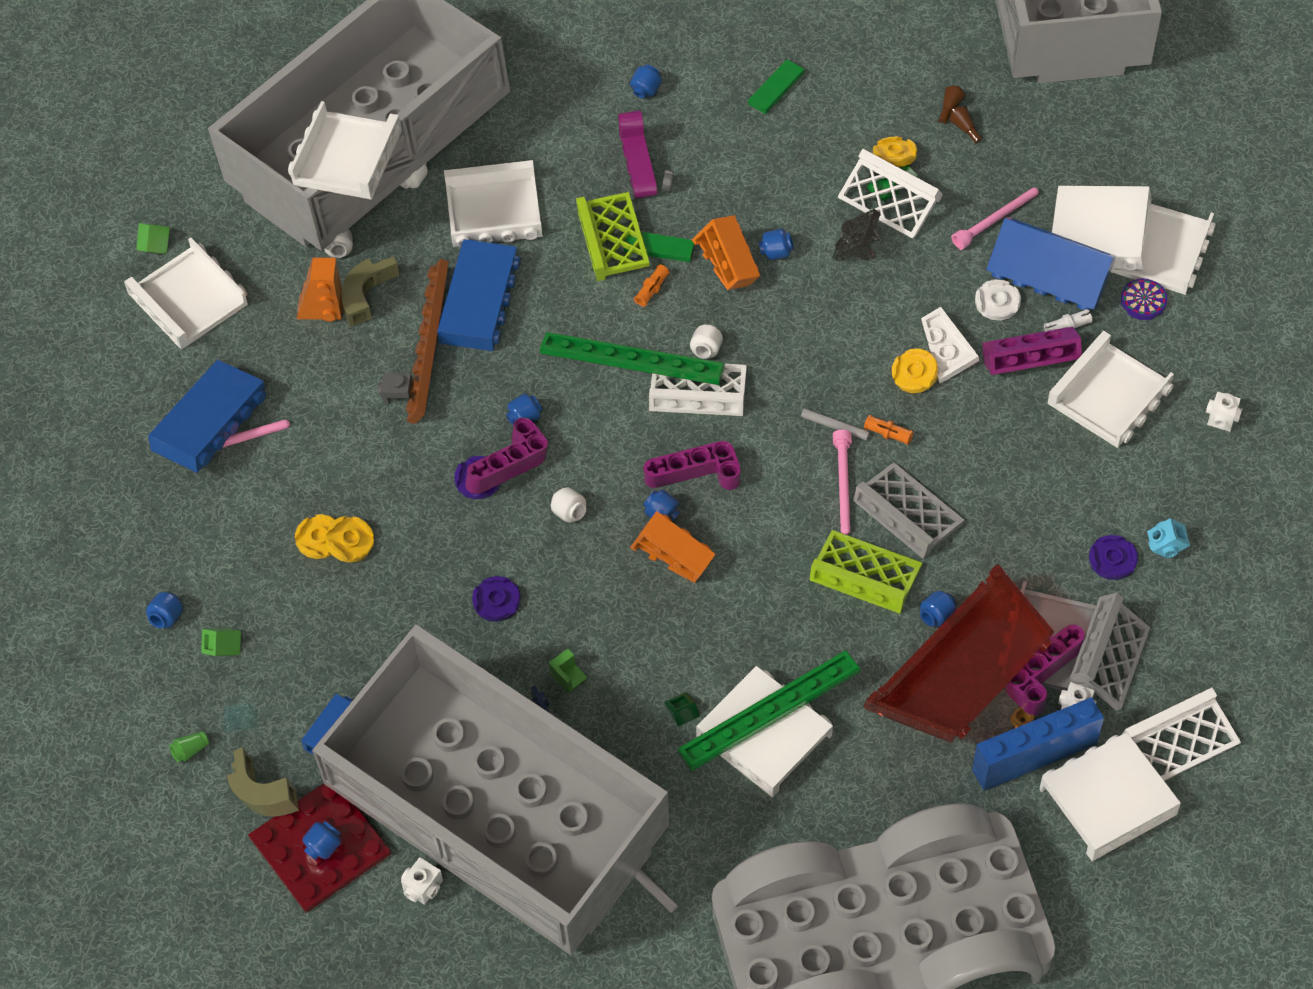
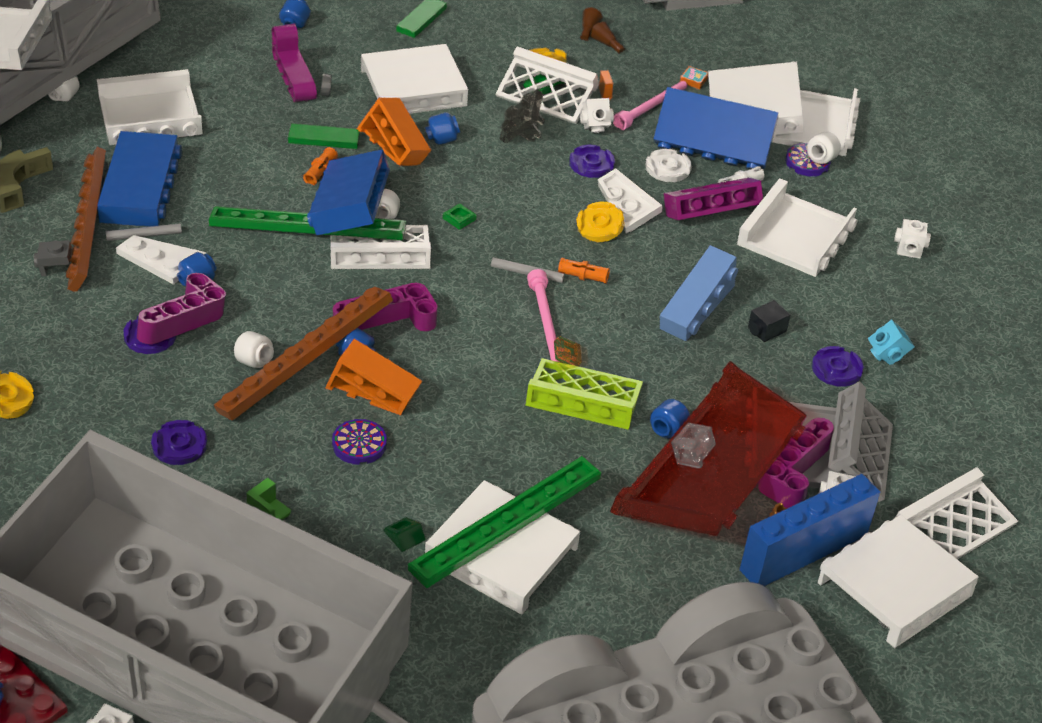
camera: 15 degrees left, 15 degrees down
(479, 358) = (143, 232): none -> light grey bar
(491, 388) = (155, 256): none -> white wing
(594, 243) = (258, 131): lime fence -> none
(613, 514) = (302, 353): none -> dark orange plate
(653, 610) = (359, 441): none -> dark purple tile
(673, 331) = (349, 192): none -> blue brick
(757, 177) = (419, 76): none -> white panel
(779, 355) = (459, 216): none -> green tile
(856, 525) = (567, 351): none -> clear orange tile
(896, 519) = (614, 347): light grey fence -> none
(921, 297) = (585, 165): none -> dark purple tile
(930, 227) = (597, 107): none -> white brick
(950, 644) = (693, 444): none -> clear brick
(951, 192) = (606, 85): none -> orange tile
(993, 470) = (700, 293): none -> medium blue wedge
(1048, 182) = (694, 77): none -> tile
(1055, 503) = (768, 321): none -> black brick
(1159, 291) = (823, 147): none -> white head

